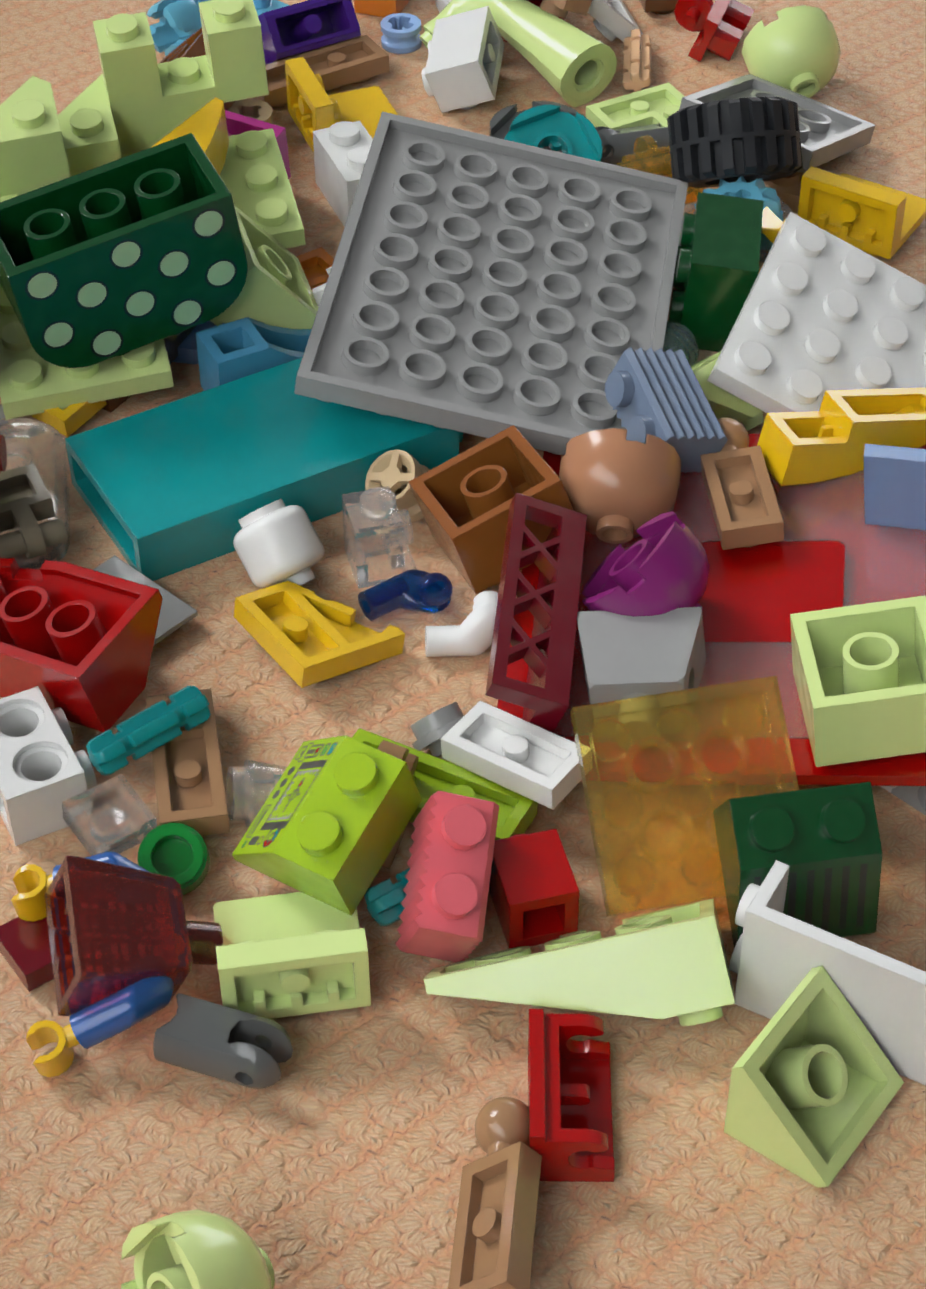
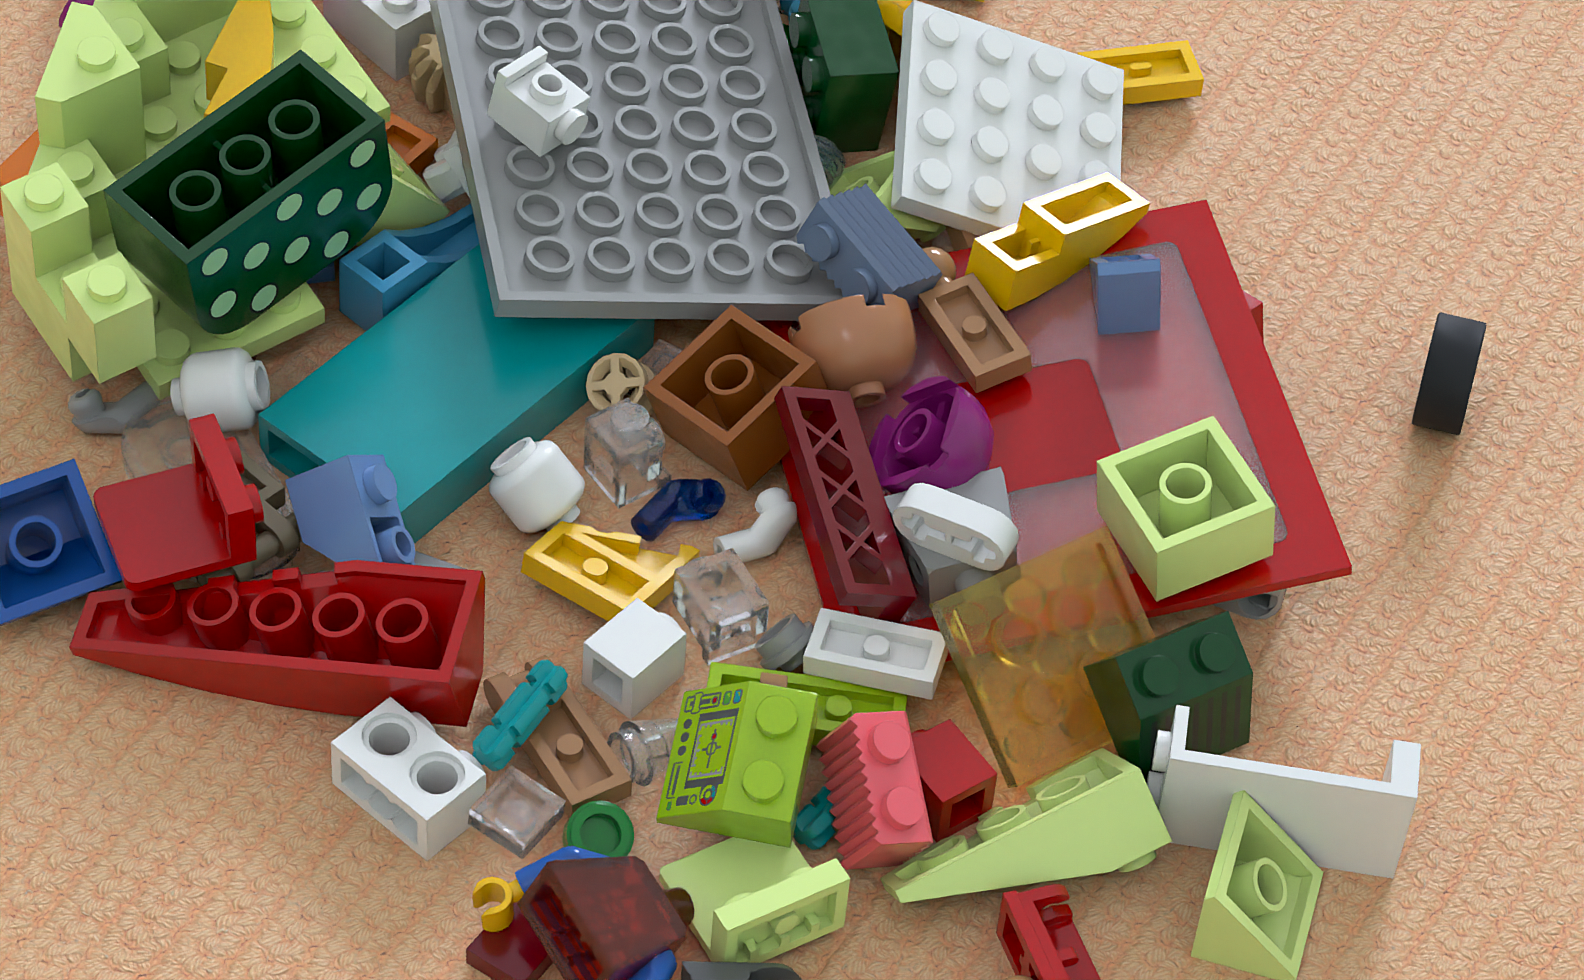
camera: 25 degrees left, 5 degrees up
(44, 413) = (222, 384): none -> white head
(93, 522) = (351, 511): none -> medium blue slope
(291, 707) = (634, 658): none -> white brick
(395, 681) = (720, 604): none -> clear brick
(409, 230) = (538, 103): none -> white brick
(624, 645) = (956, 526): none -> white beam

